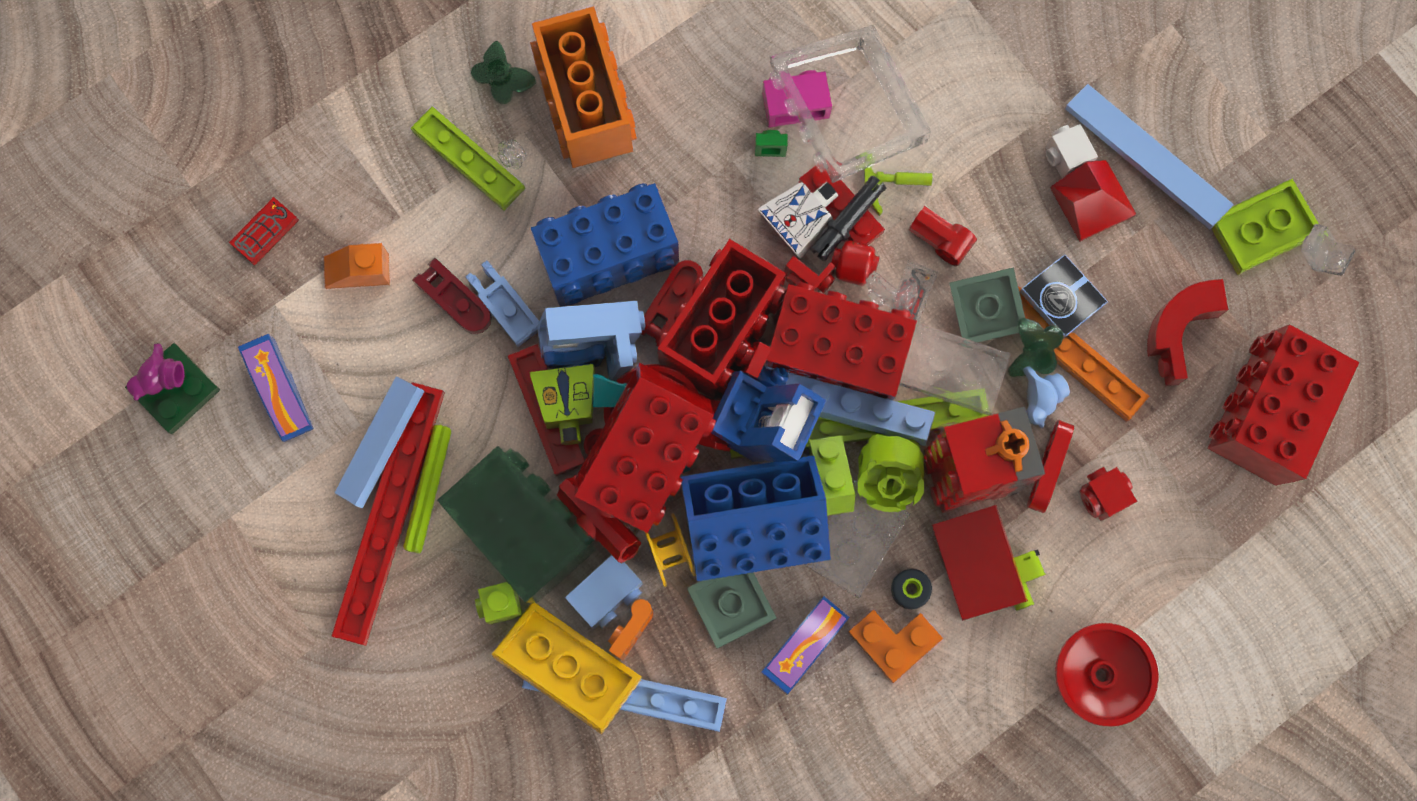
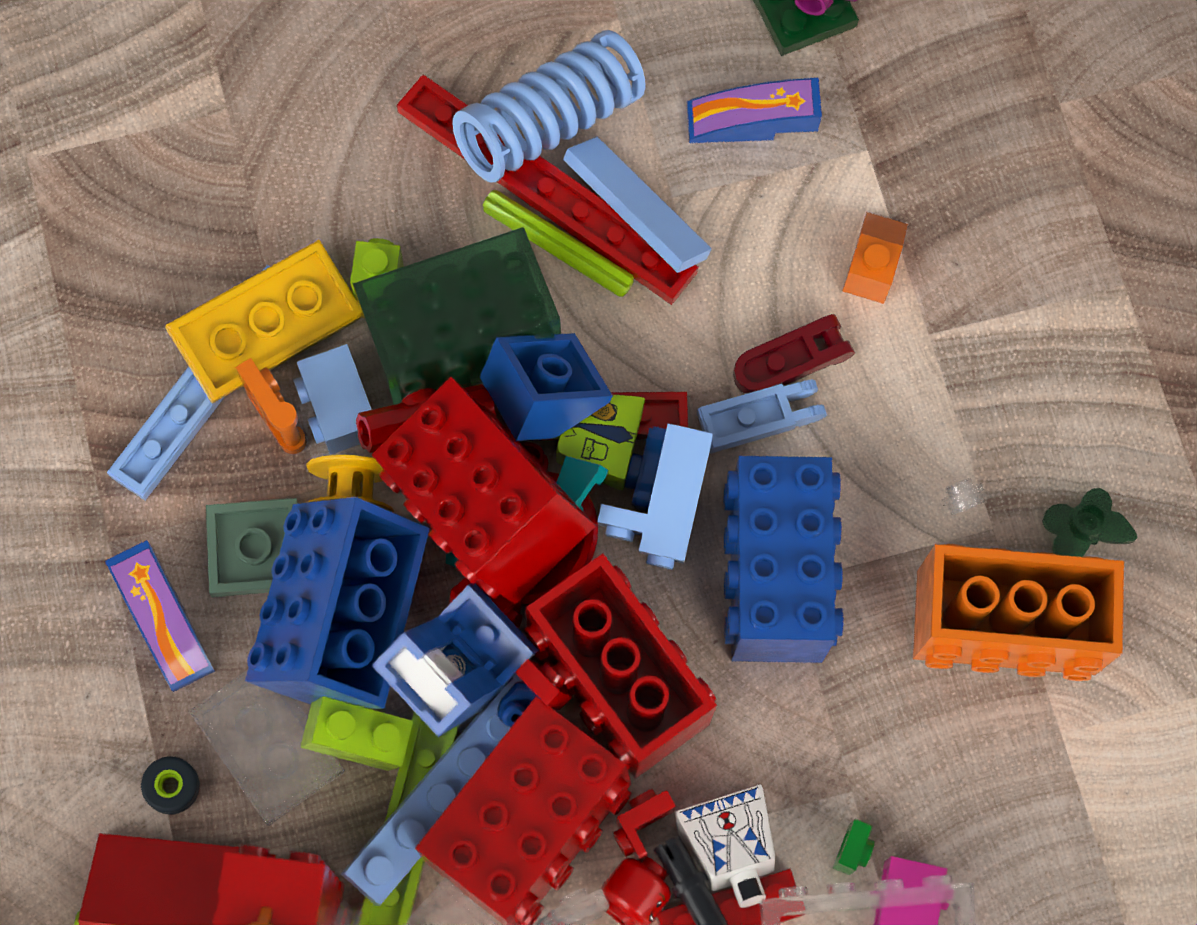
camera: 110 degrees right, 5 degrees down
(264, 231) = (967, 165): tile -> none
(284, 518) = (598, 67): none -> light blue piece
(468, 158) = (979, 443): lime tile -> none
(548, 440) = (543, 384): none -> blue slope
(673, 293) = (684, 624): red plate -> none
(891, 473) = (325, 811): lime brick -> none
(892, 651) = (100, 734): orange plate -> none

